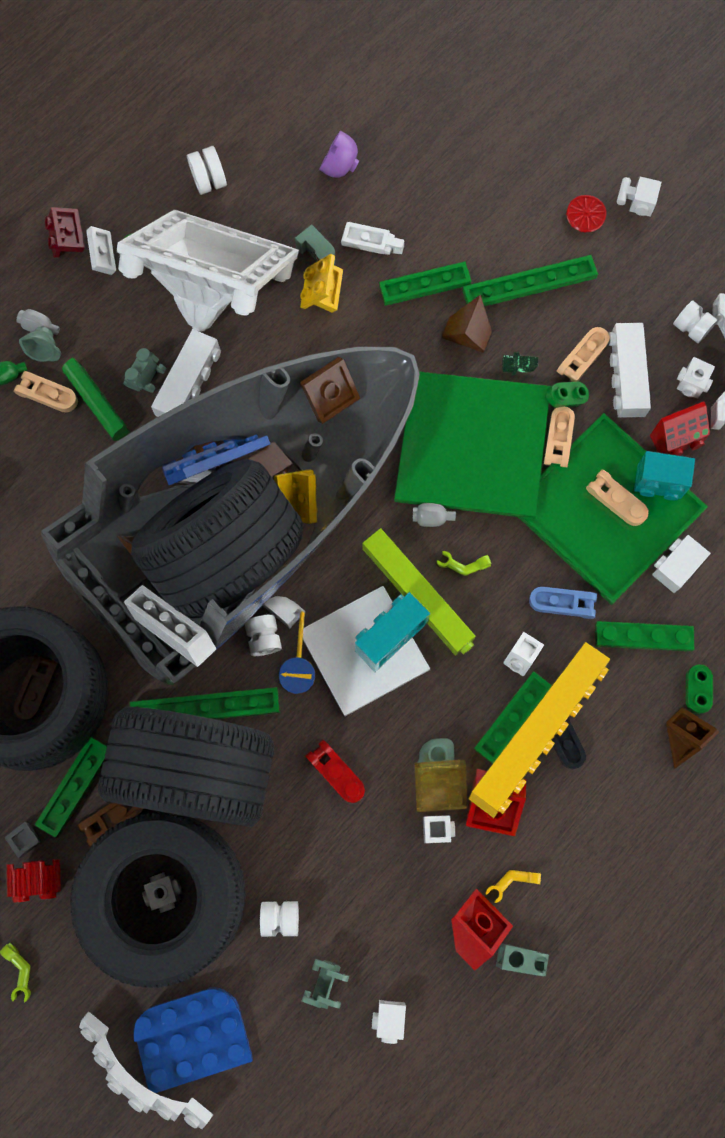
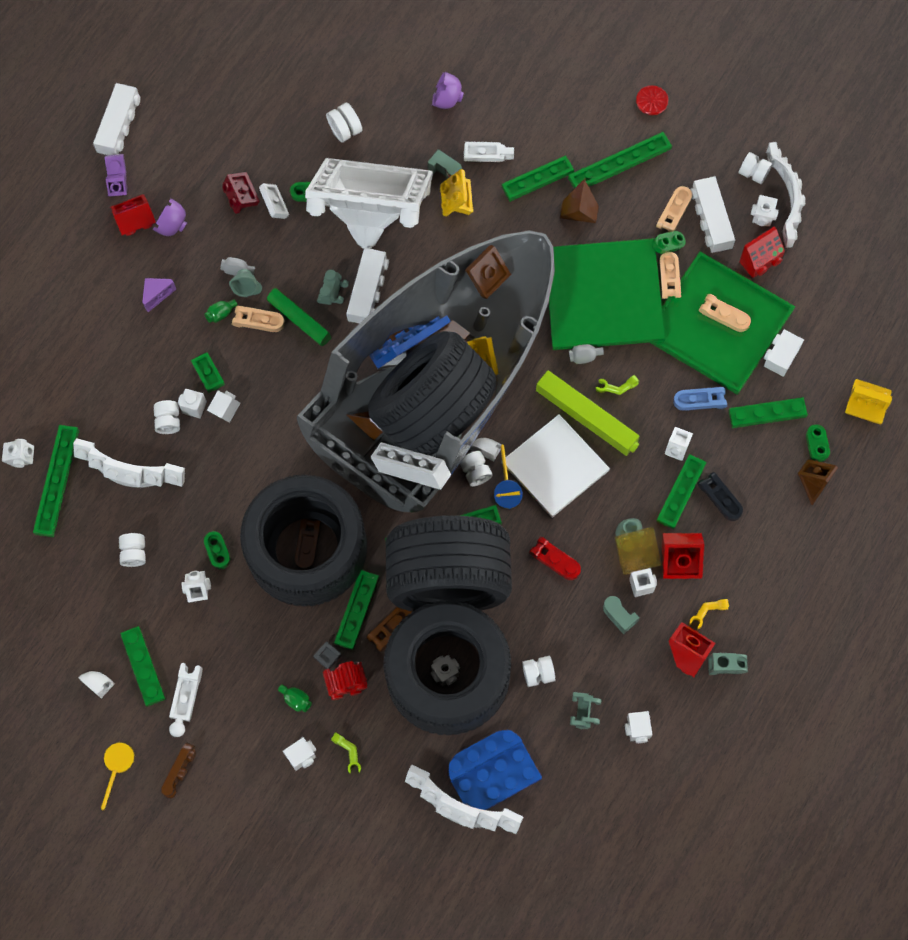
camera: 10 degrees left, 5 degrees down
(391, 631) = (575, 443): teal brick -> none
(393, 855) = (618, 615): none -> sand green leg
(516, 363) = (623, 226): clear green piece -> none
(538, 731) = (704, 492): yellow brick -> none
(643, 195) = (693, 78): white brick -> none
(664, 475) = (756, 288): teal brick -> none

